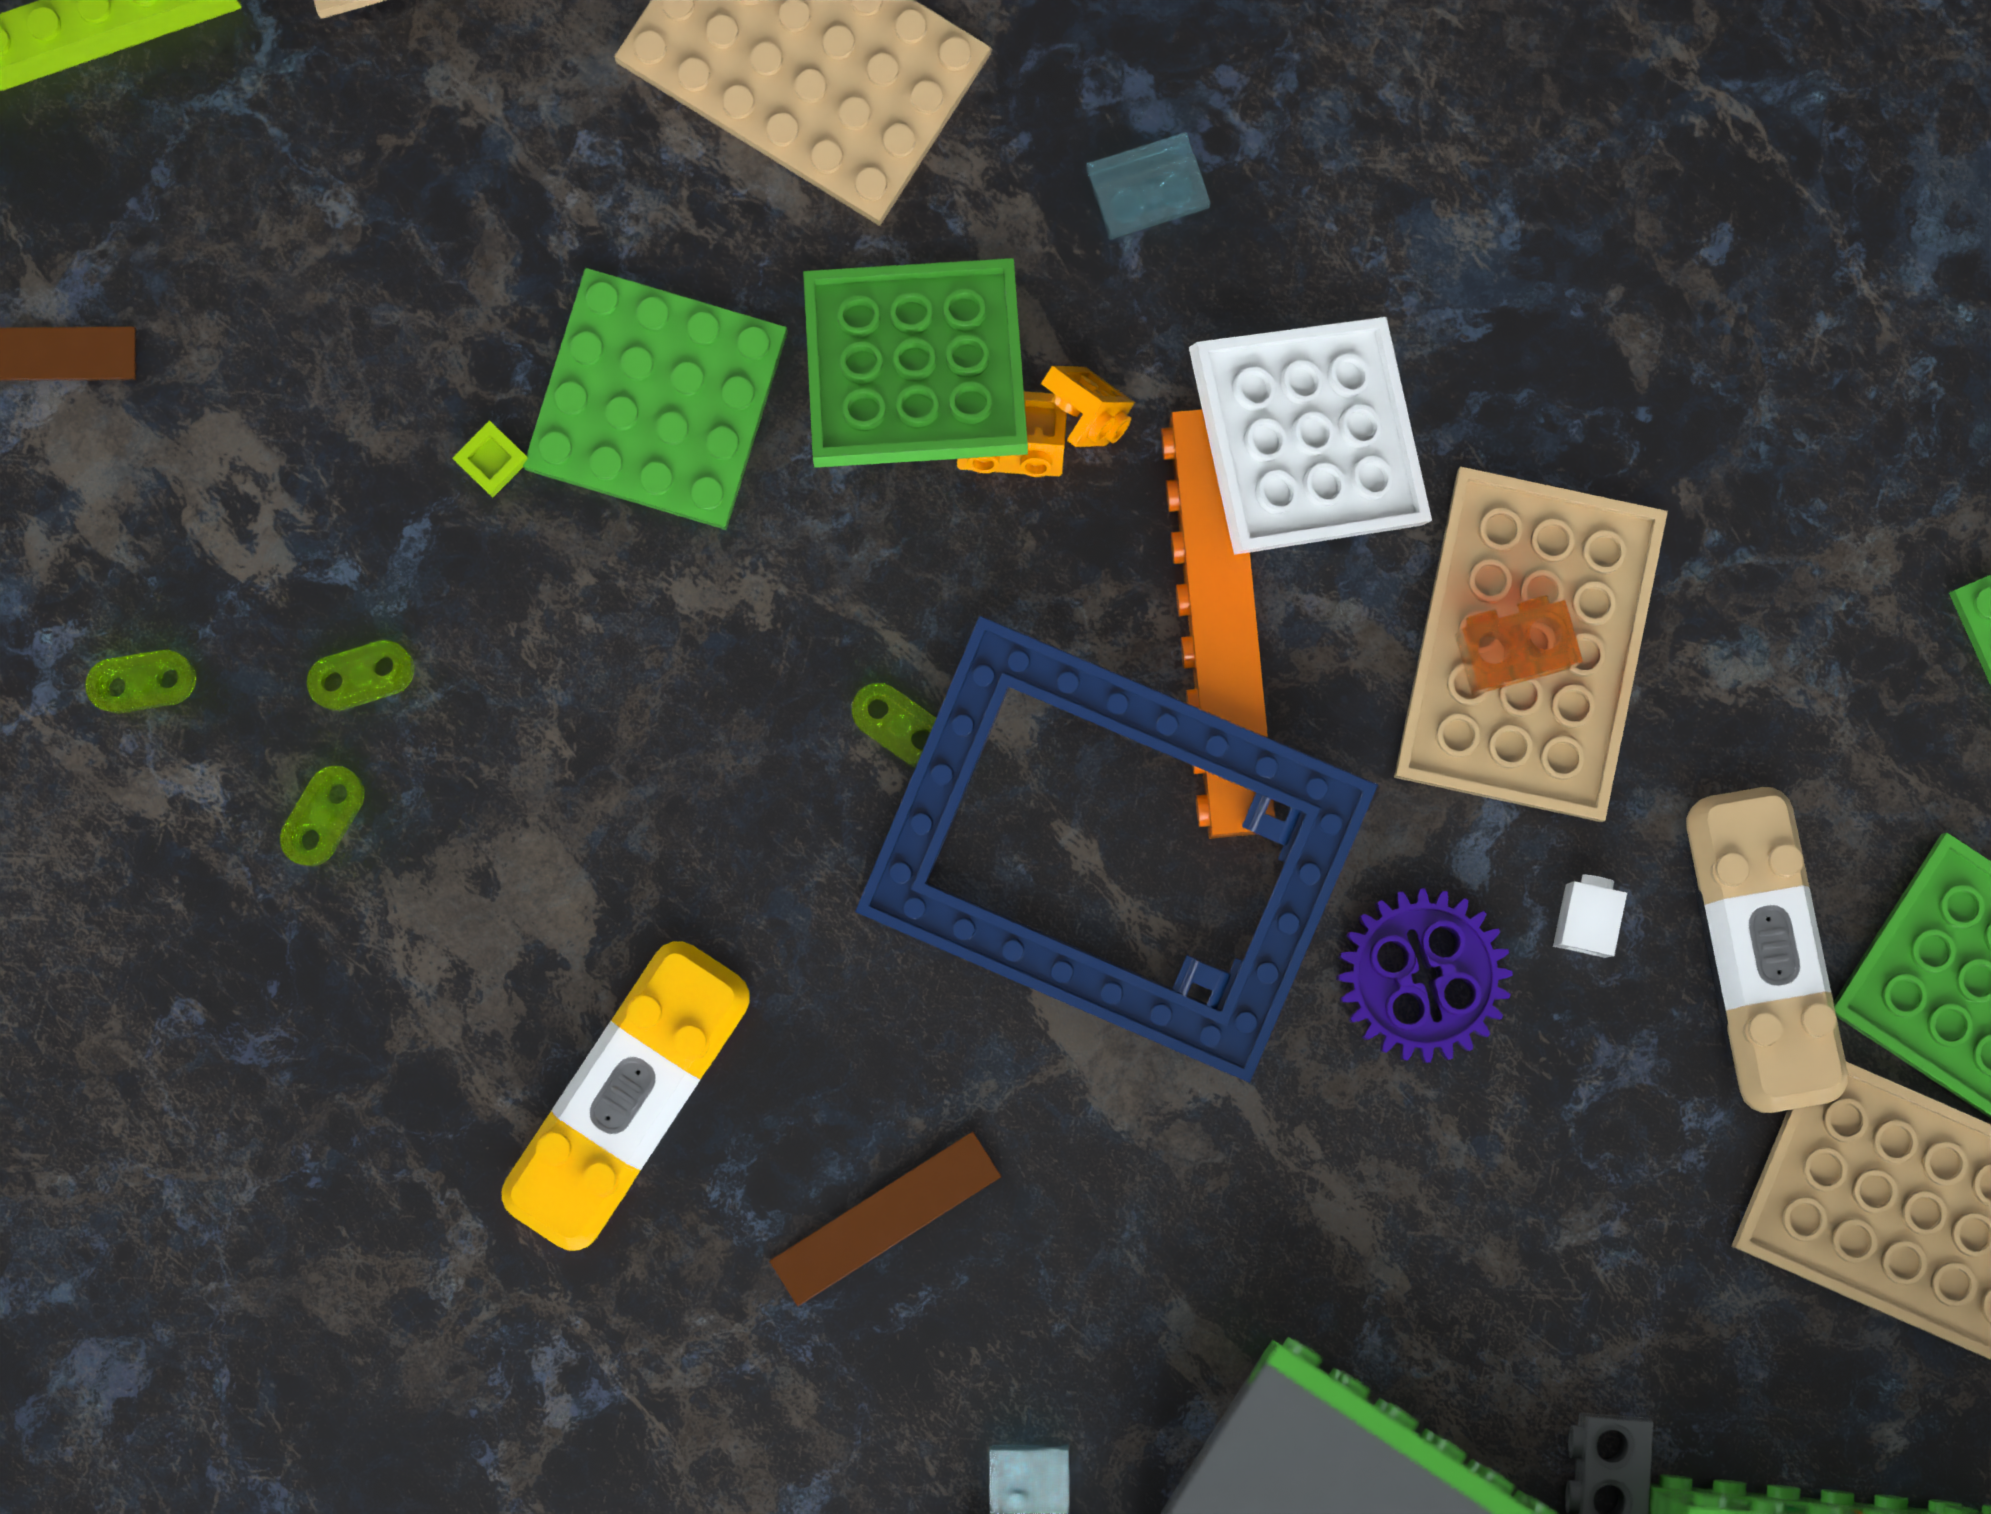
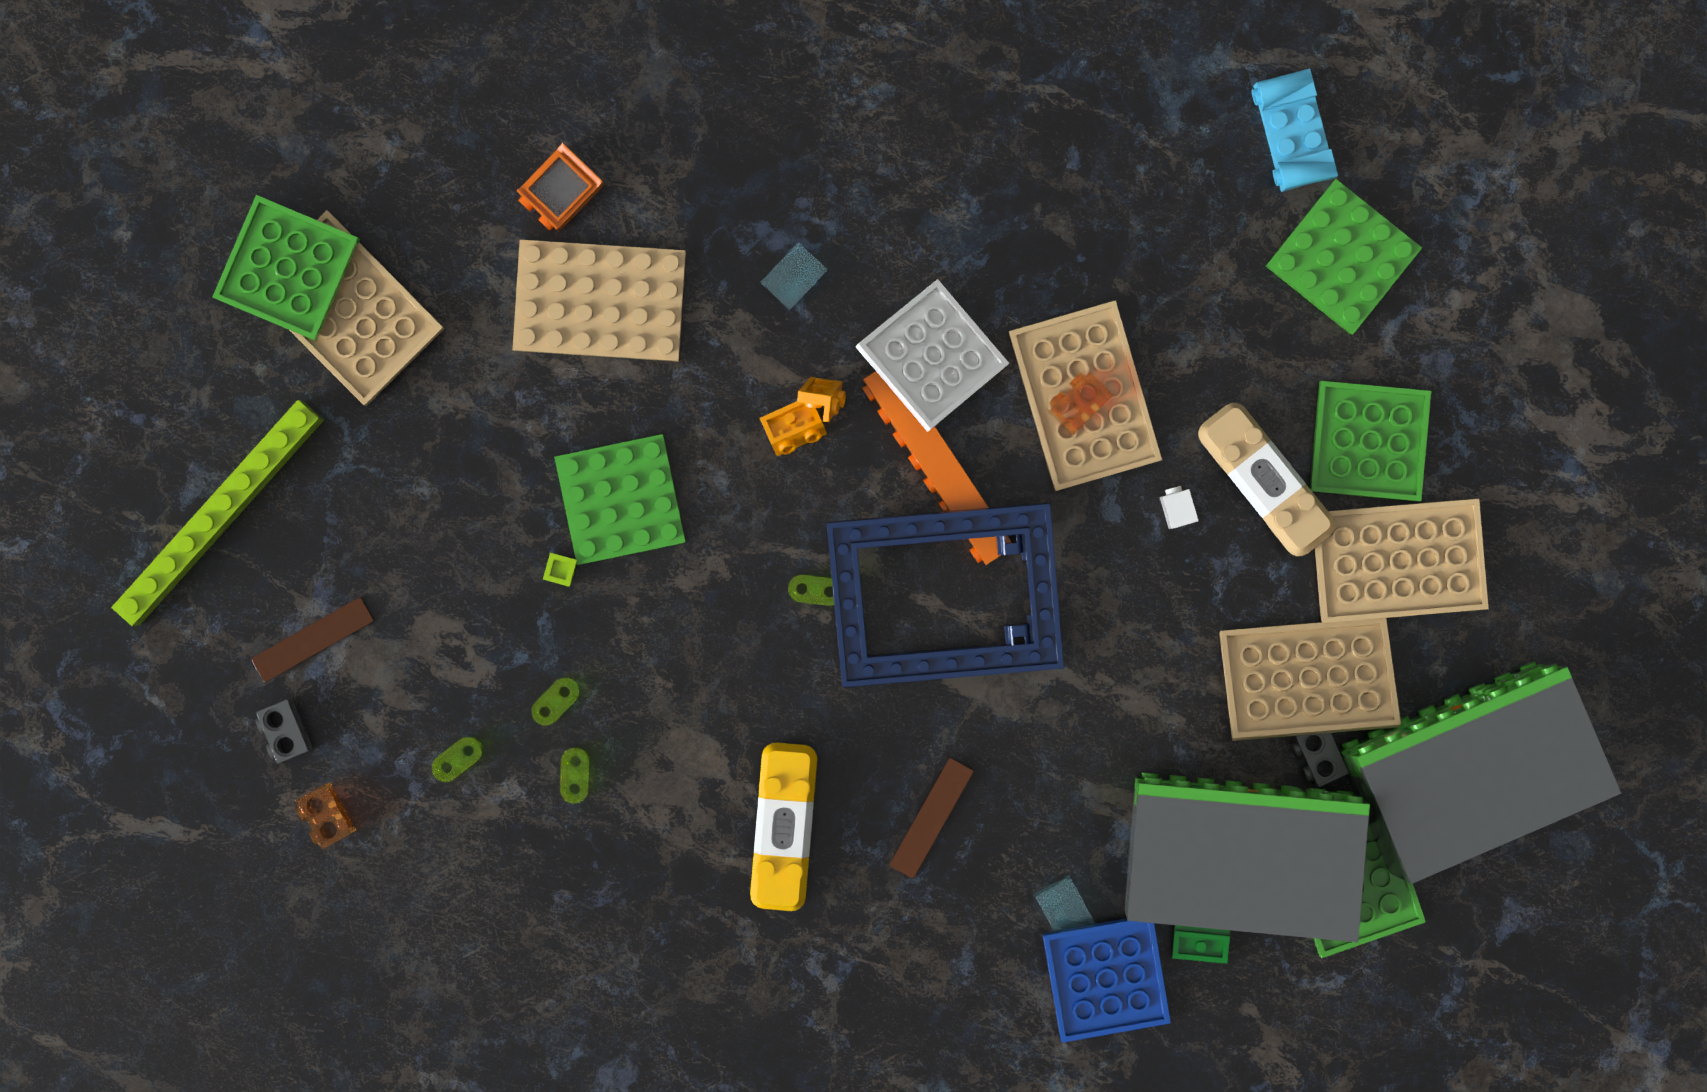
camera: 25 degrees left, 5 degrees up
(914, 363) = (732, 420): bright green plate -> none
(1471, 961) = (1134, 557): dark purple gear -> none
(1663, 1332) = (1309, 679): none -> tan plate

